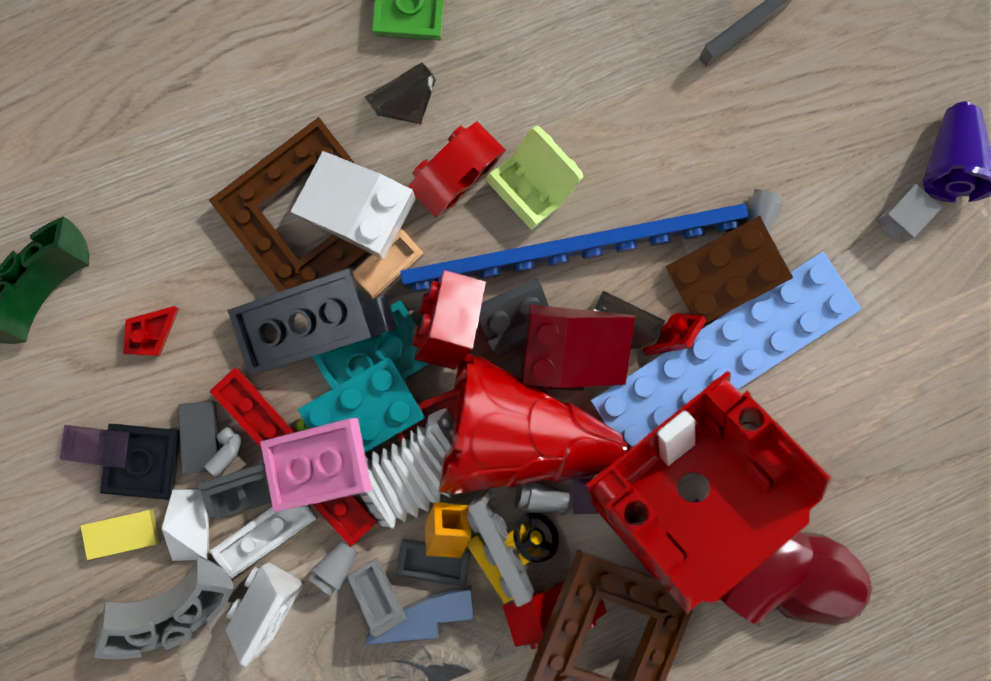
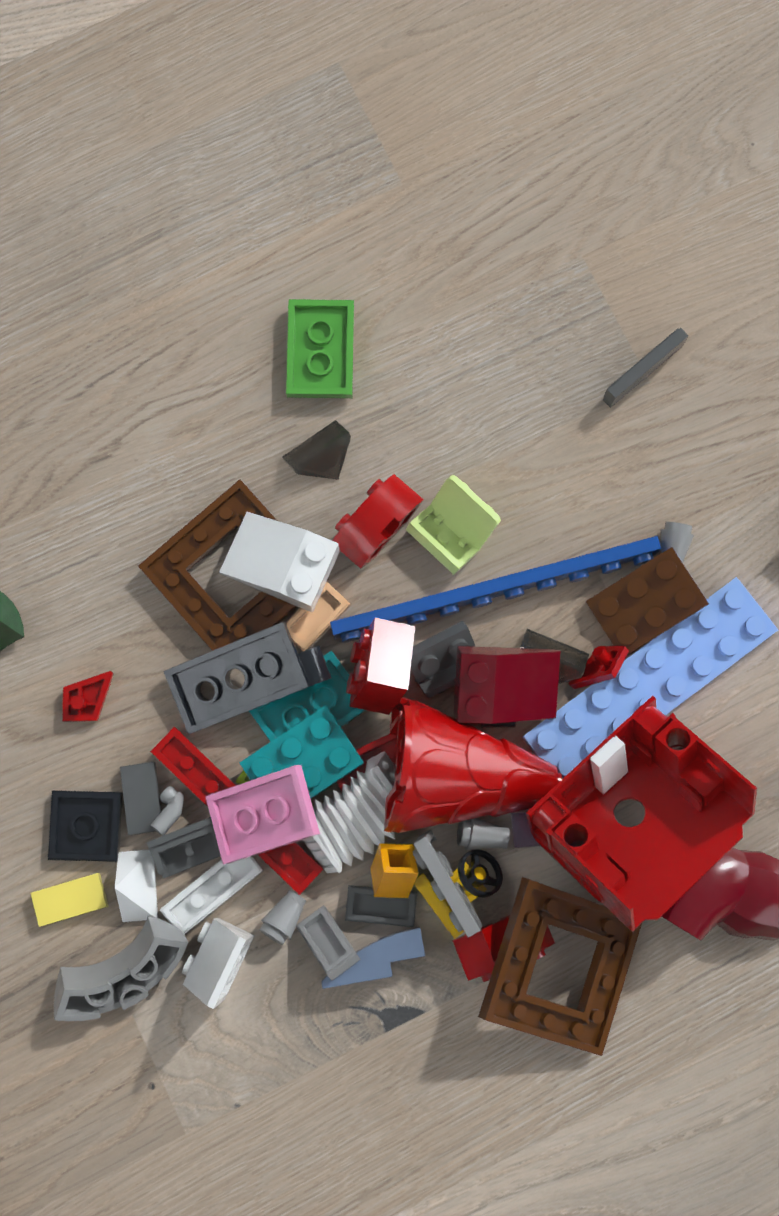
camera: 10 degrees left, 5 degrees down
(94, 446) = (40, 813): clear purple tile -> none

